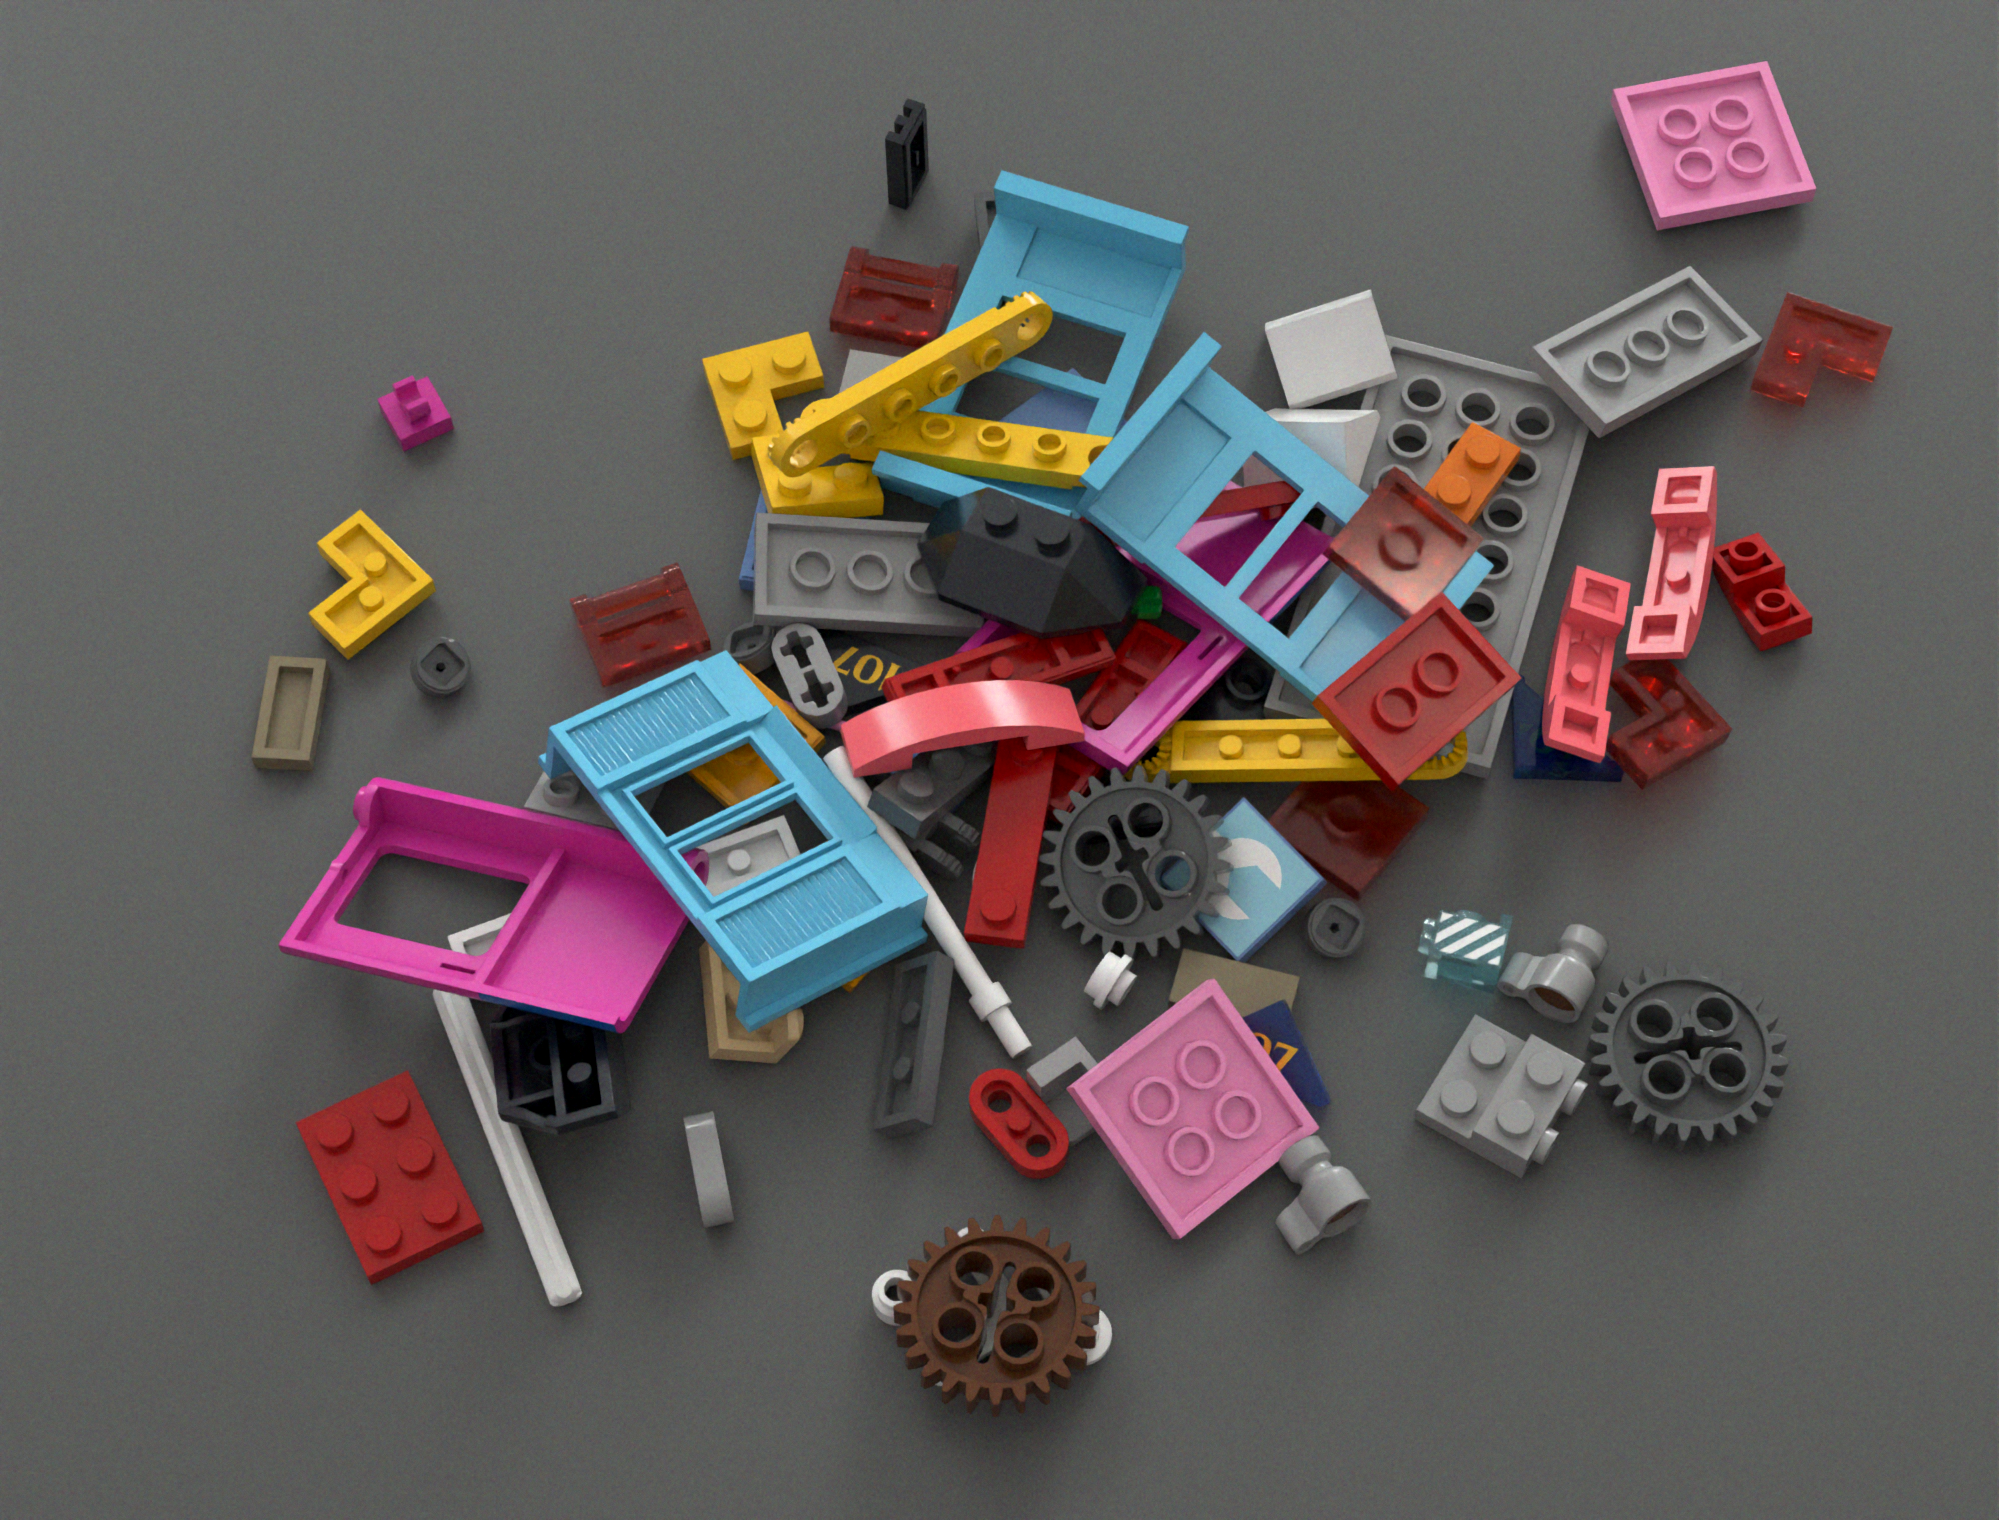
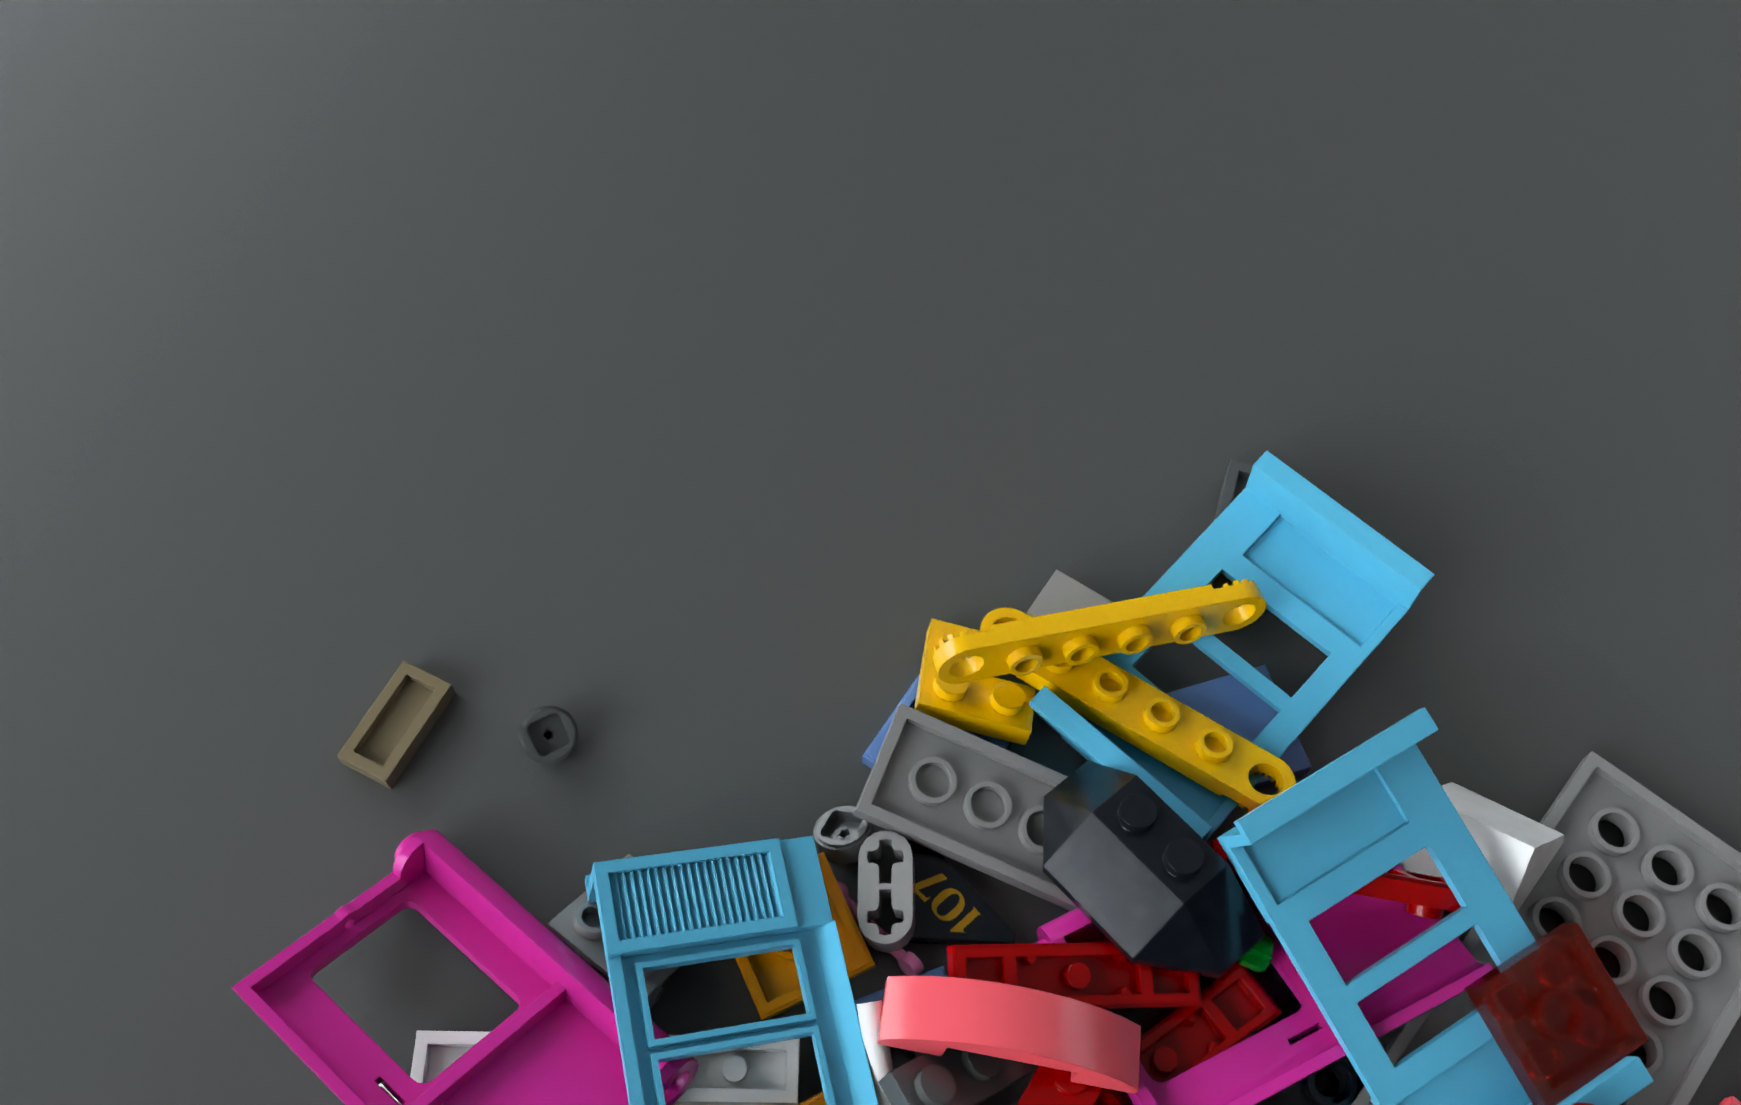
camera: 20 degrees right, 0 degrees up
(379, 586) = (531, 636): yellow plate -> none
(415, 412) = (643, 476): dark pink tile -> none
(645, 637) = (749, 781): clear red plate -> none
(752, 378) = (956, 558): yellow plate -> none
(891, 310) = (1111, 542): clear red plate -> none
(907, 154) = (1182, 399): black tile -> none
(1330, 350) = (1534, 746): white slope -> none
(1473, 472) = (1647, 943): orange plate -> none

